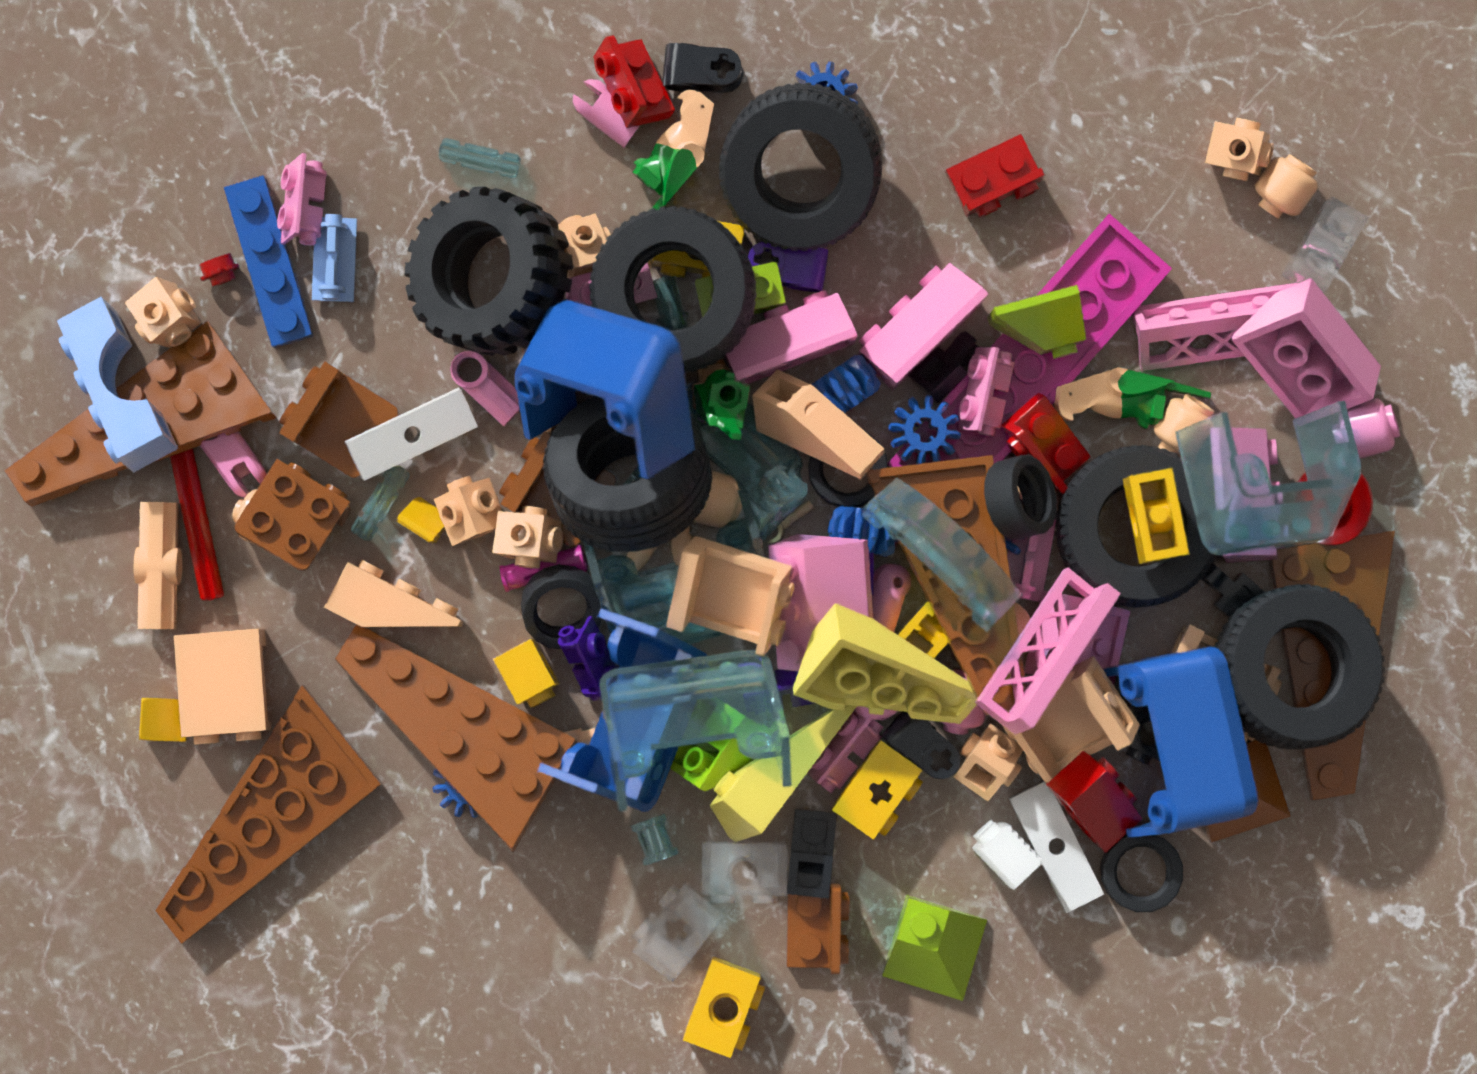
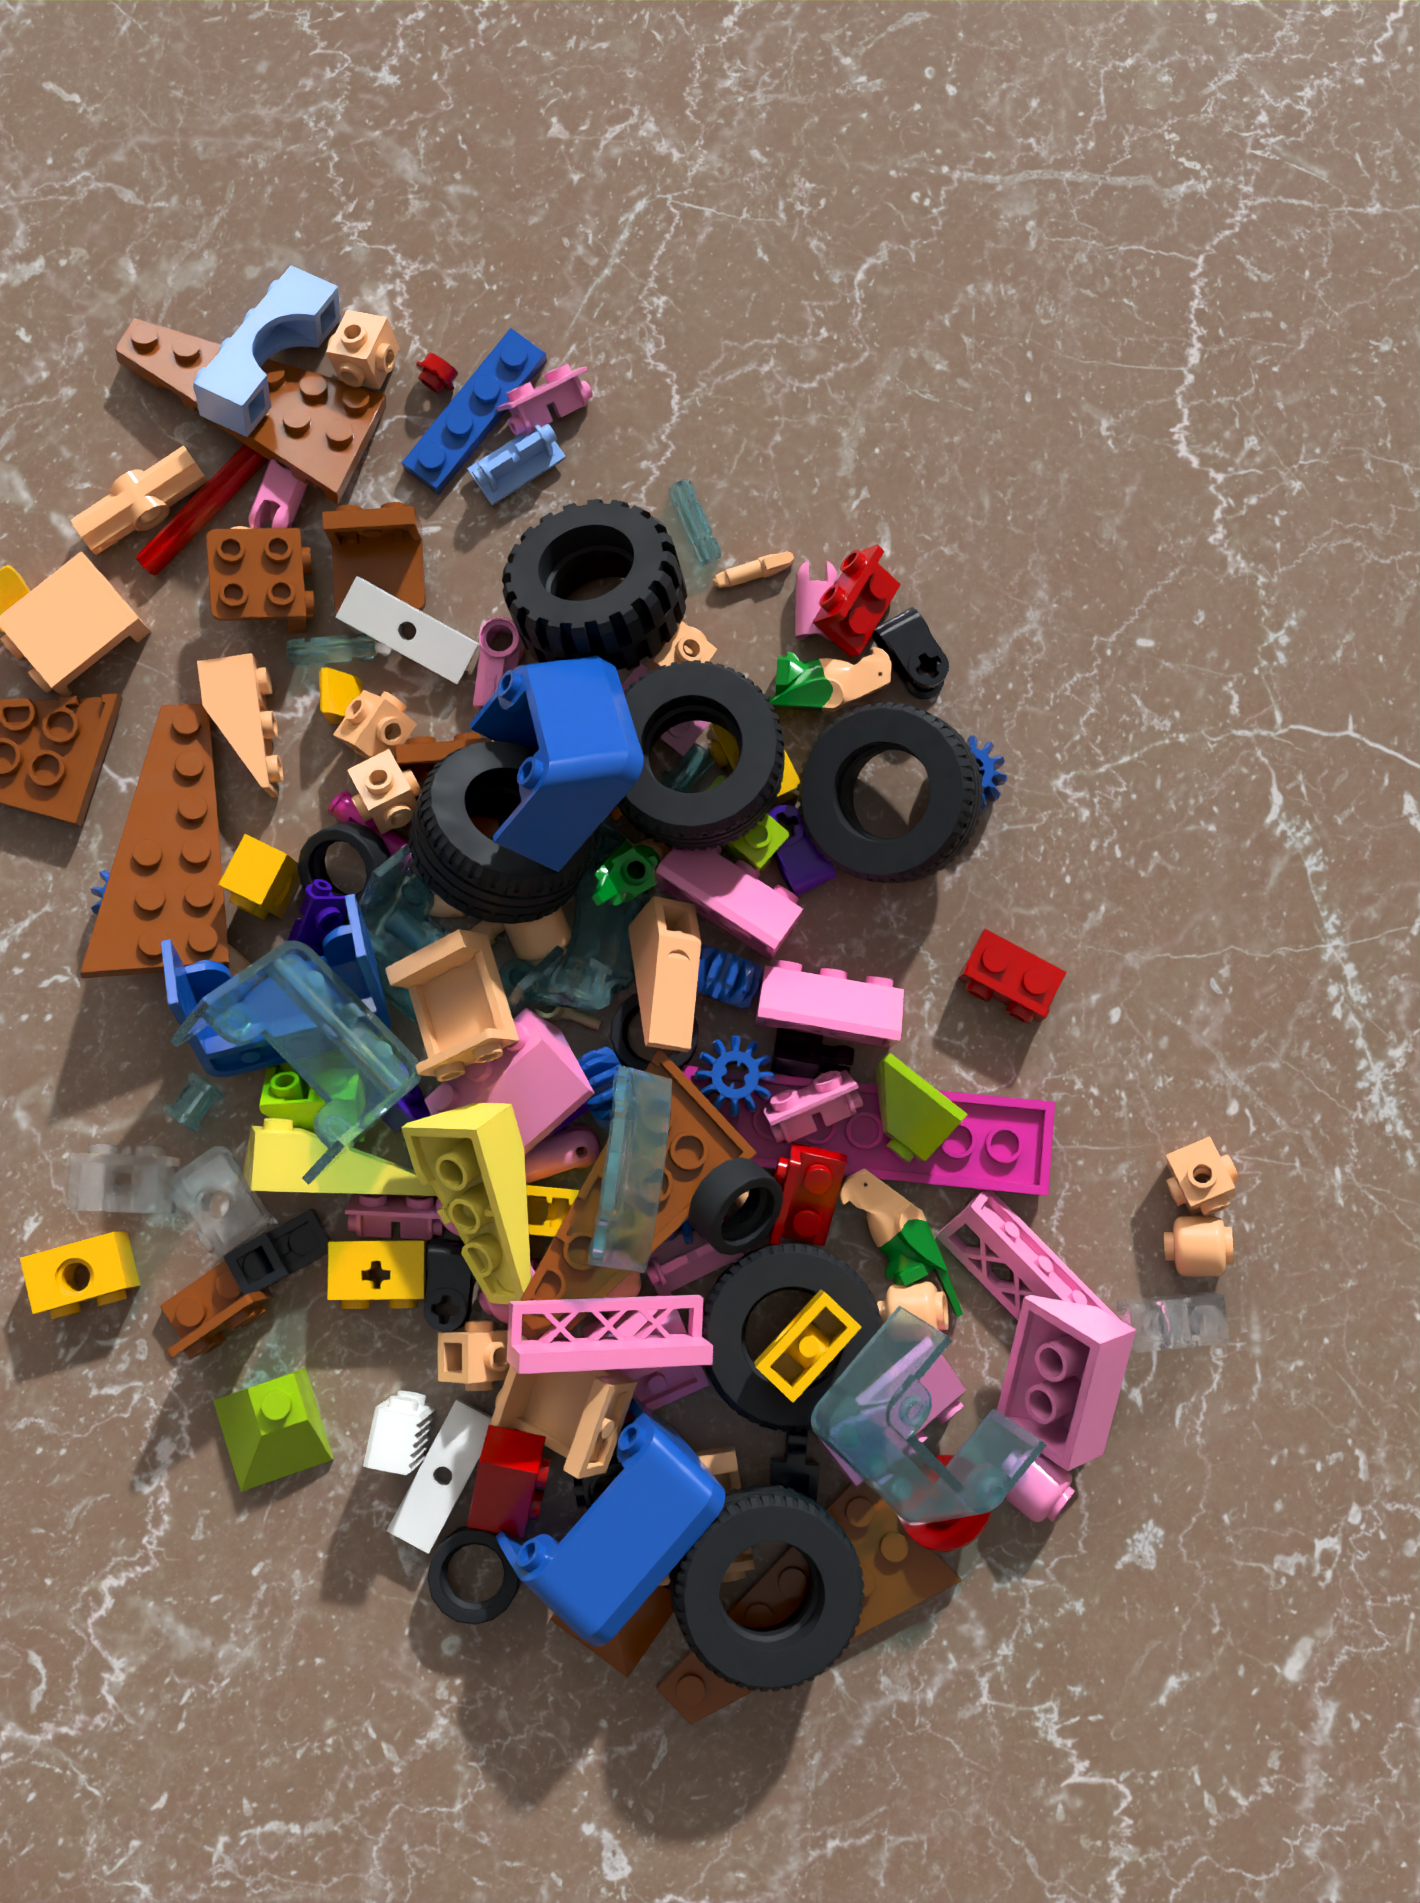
camera: 50 degrees right, 5 degrees down
(550, 132) = (763, 567): none -> light nougat piece

